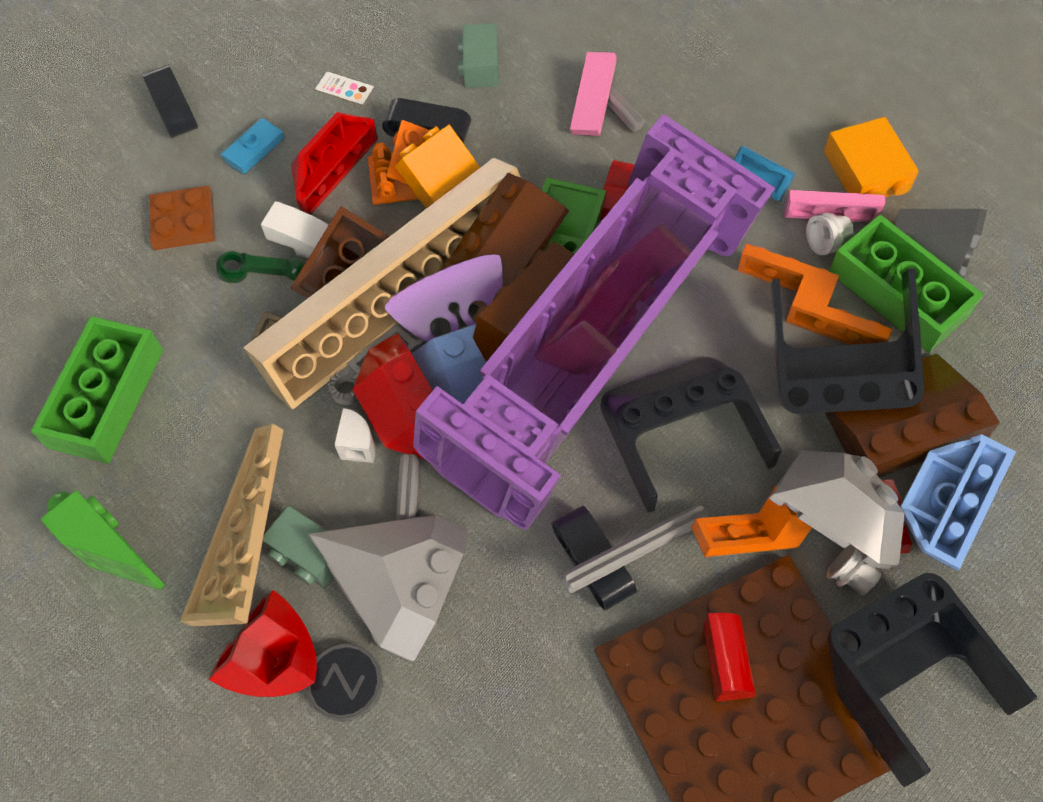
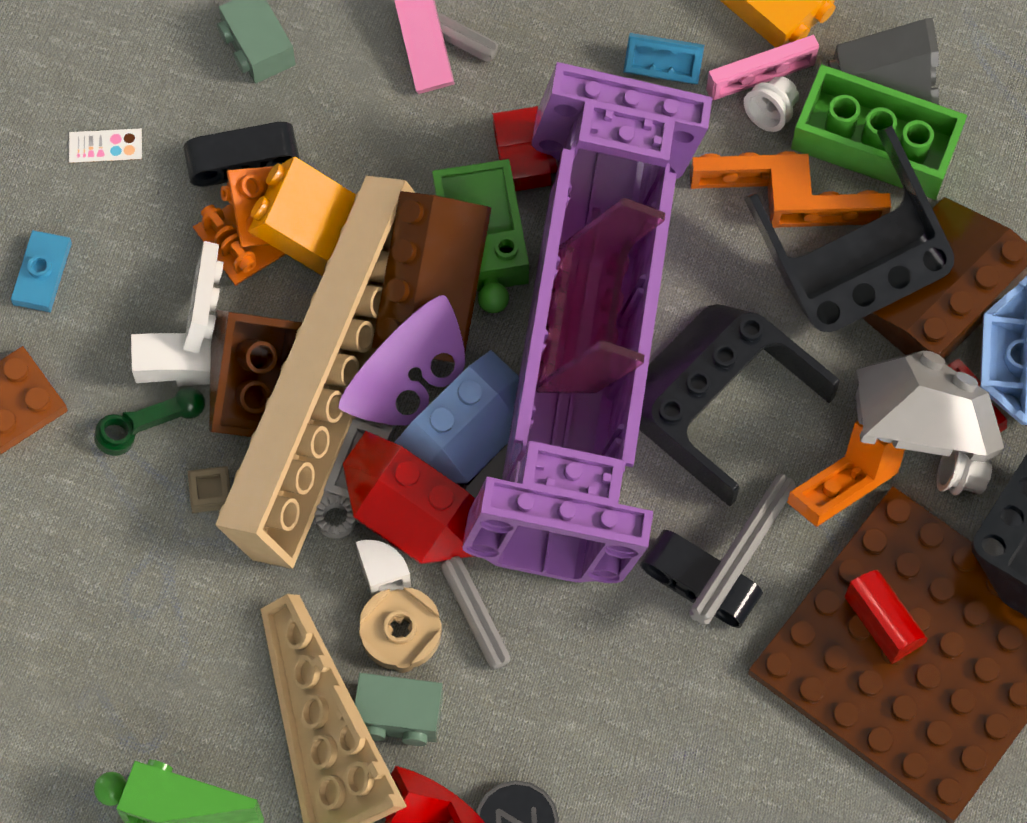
camera: 30 degrees left, 5 degrees up
(98, 390) = (61, 646): bright green brick -> none
(326, 482) = (401, 652): none -> tan plate
(330, 157) = (151, 253): red wedge -> none
(341, 194) = (203, 297): none -> white plate
(396, 575) = (515, 691): light grey wedge -> none
(513, 302) = (502, 337): reddish brown slope -> none

